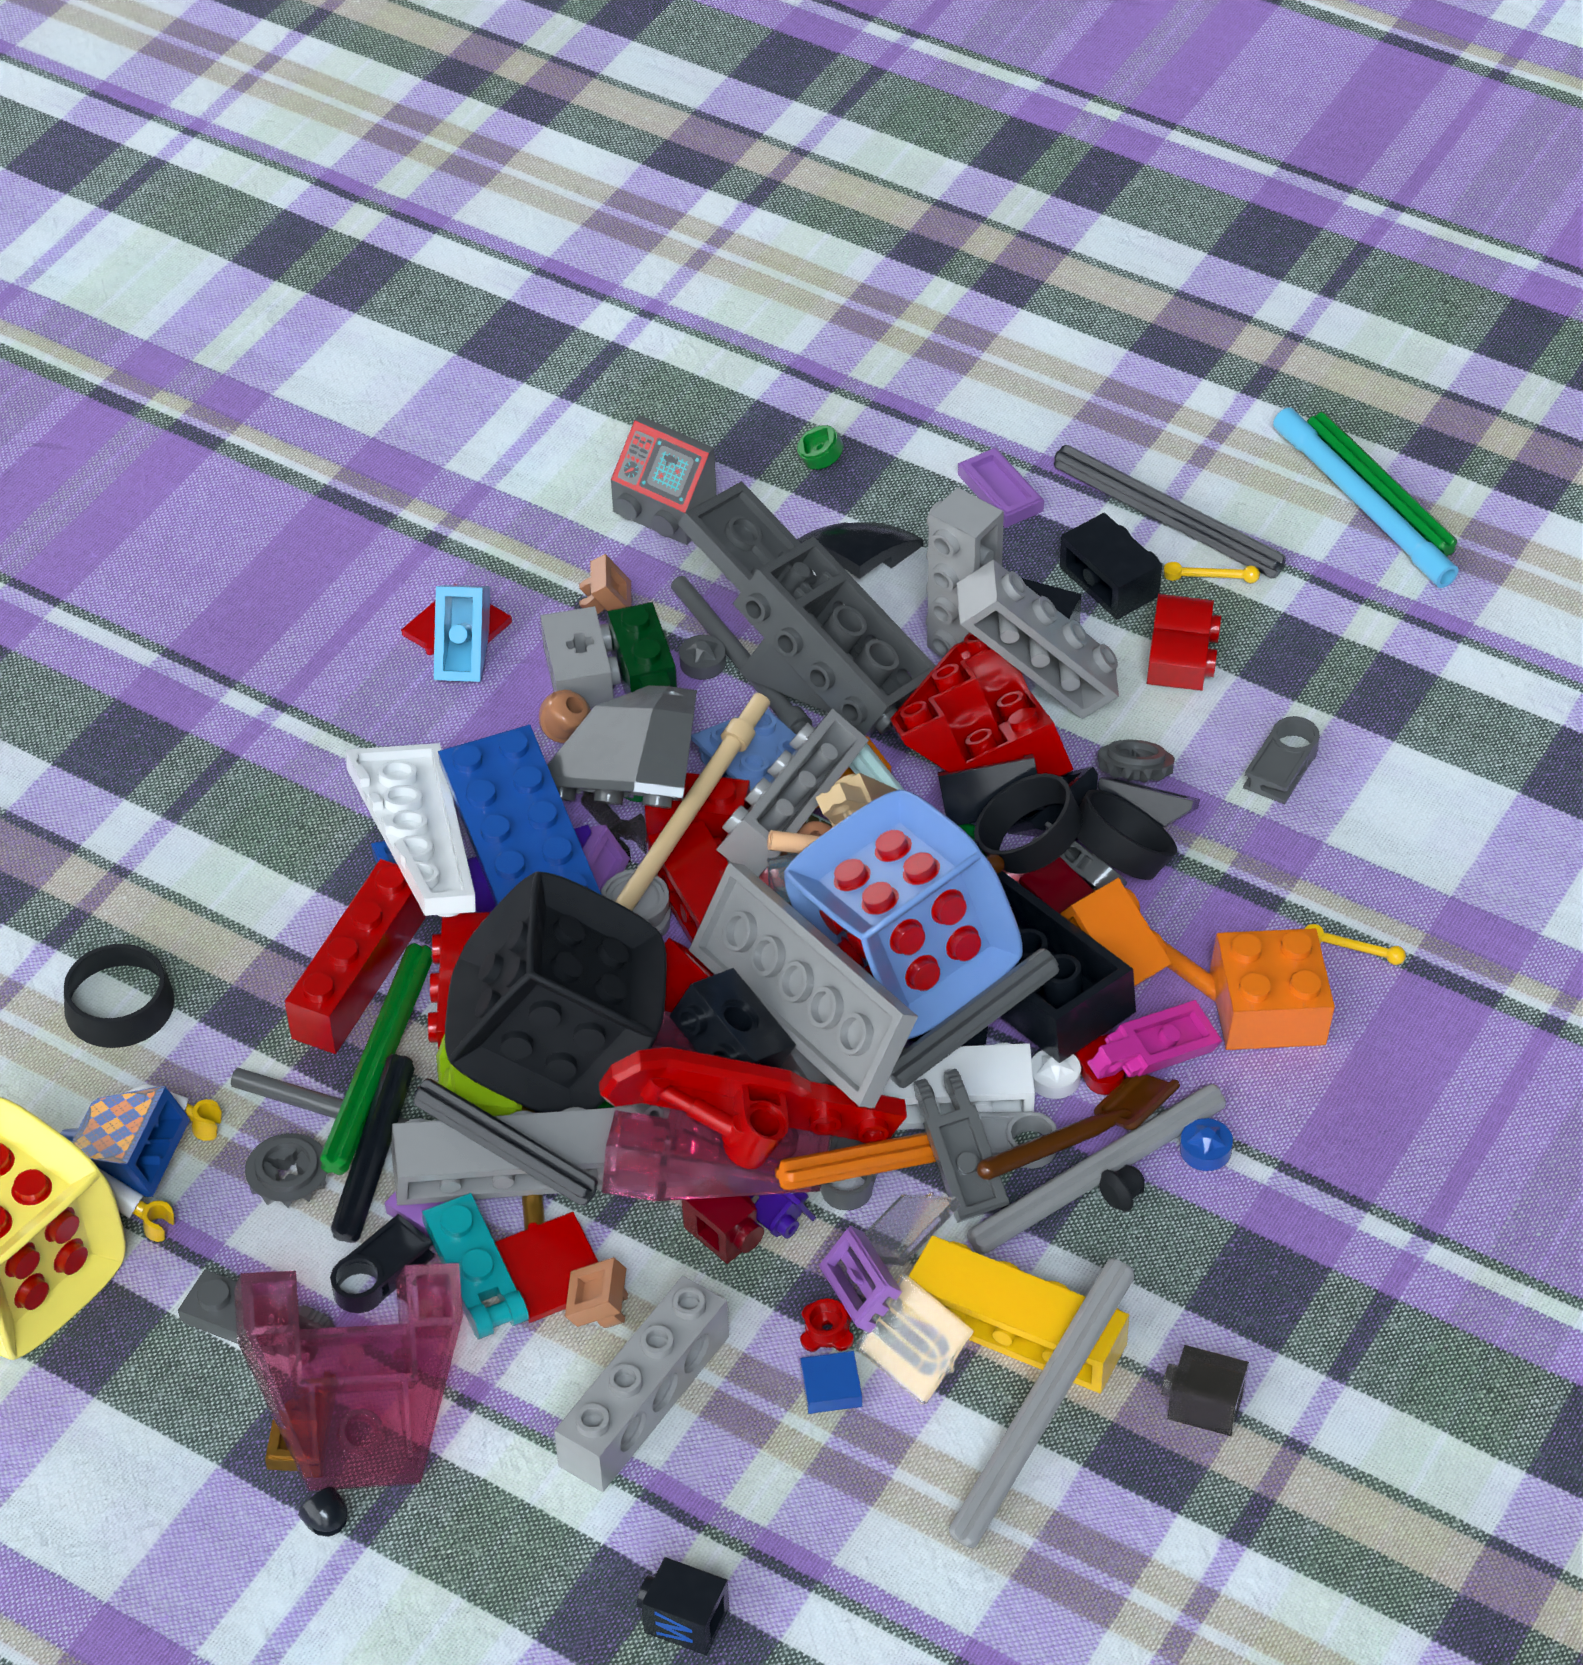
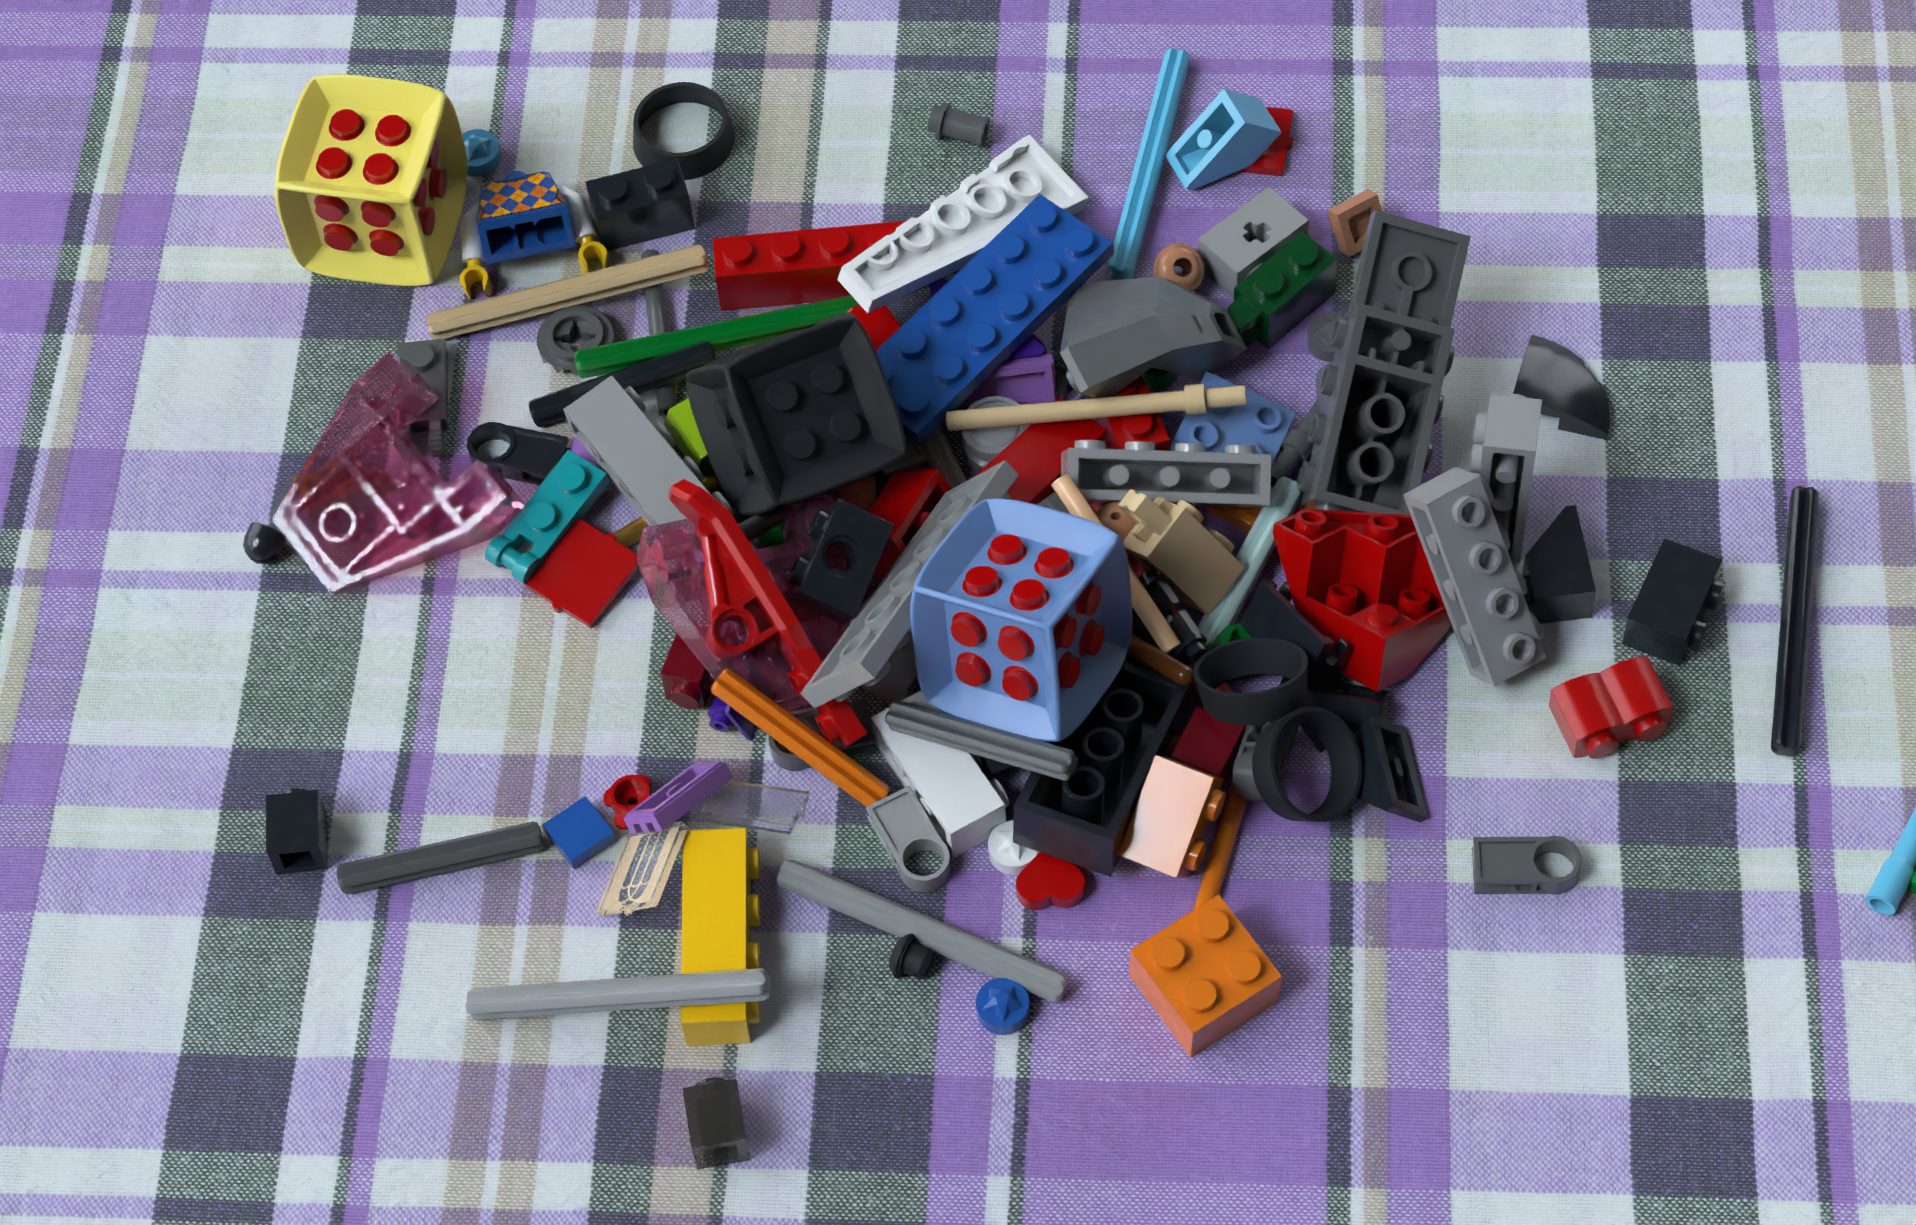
camera: 65 degrees right, 10 degrees up
(185, 1046) = (640, 205): none -> black brick
(232, 1152) = (567, 292): none -> tan axle
(276, 804) = (958, 124): none -> dark grey pin
(414, 680) = (1148, 164): none -> medium azure axle
(505, 1141) = (638, 461): axle -> none
(597, 1294) = (560, 615): nougat tile -> none
(642, 1383) = (491, 693): light grey brick -> none
(662, 477) = (1503, 195): slope -> none
(785, 1505) = (439, 857): none -> dark grey axle
(820, 447) = (1663, 292): green tile -> none
(958, 1147) = (857, 806): dark grey hinge -> none
(1001, 485) = (1726, 464): medium lavender tile -> none
(1124, 1107) = (994, 921): reddish brown piece -> none
(1135, 760) = (1420, 720): dark grey gear -> none
(1156, 1042) = (1081, 908): dark pink hinge -> none
(1174, 571) = (1719, 663): yellow hinge -> none
(1394, 954) = (1318, 990): yellow hinge -> none

